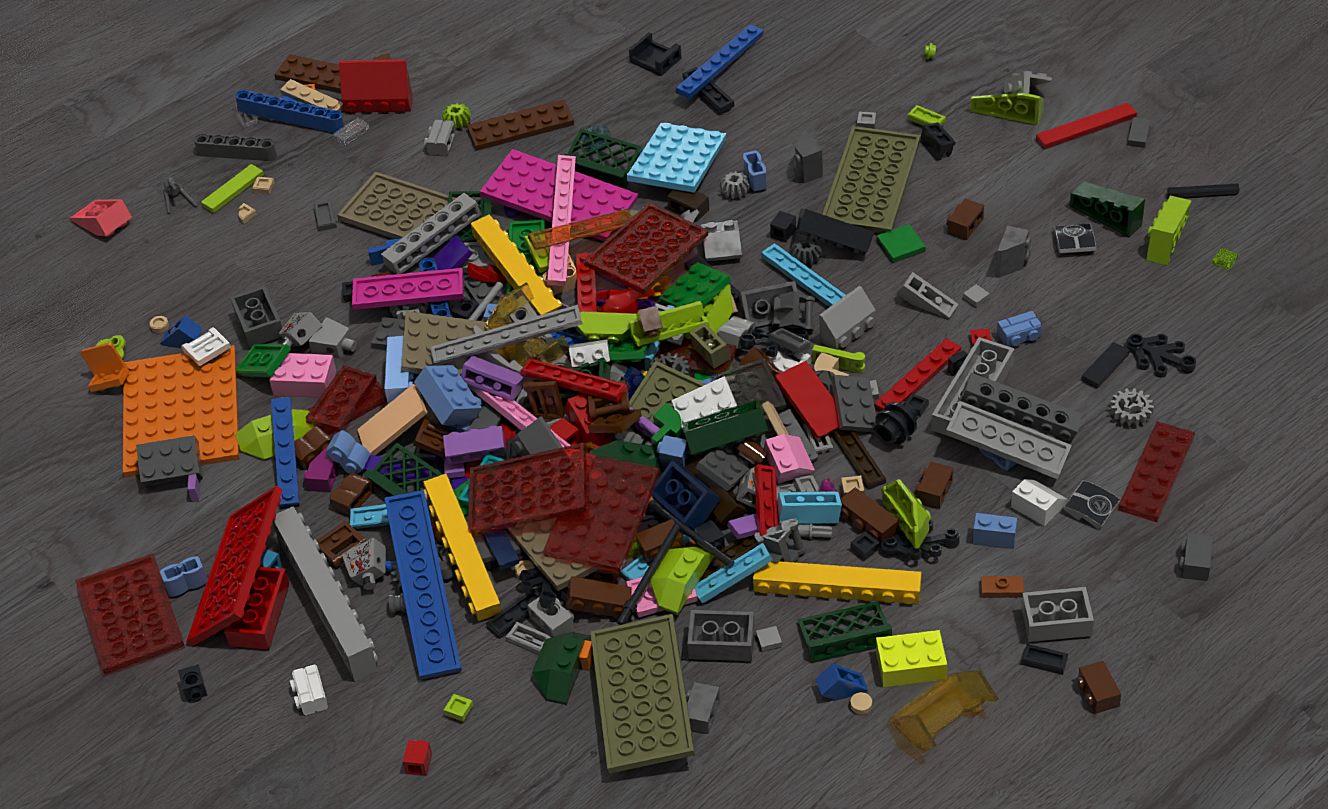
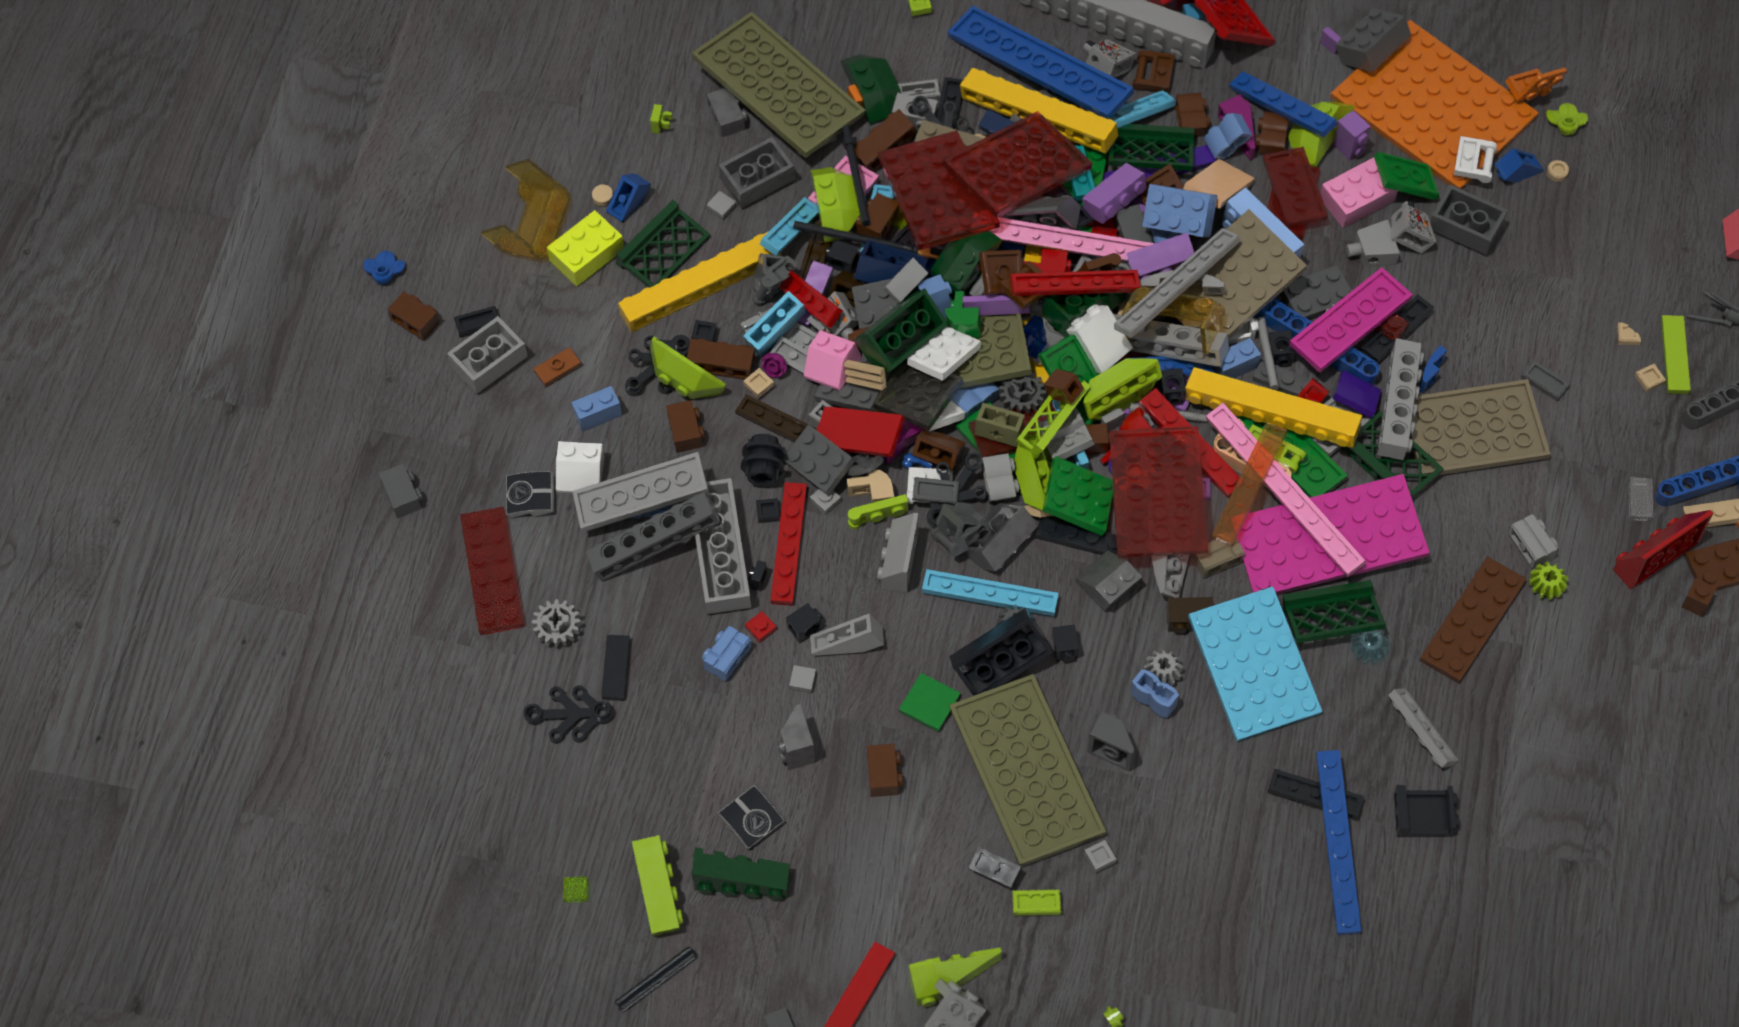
camera: 140 degrees right, 15 degrees up
(261, 400) = (1351, 135): none -> medium lavender brick
(611, 88) = (1423, 727): none -> light grey plate
(690, 455) = (905, 280): none -> light grey tile
(763, 736) = (658, 117): none -> lime tile
(948, 320) = (804, 622): none -> black brick
(1096, 751) = (383, 267): none -> blue plate

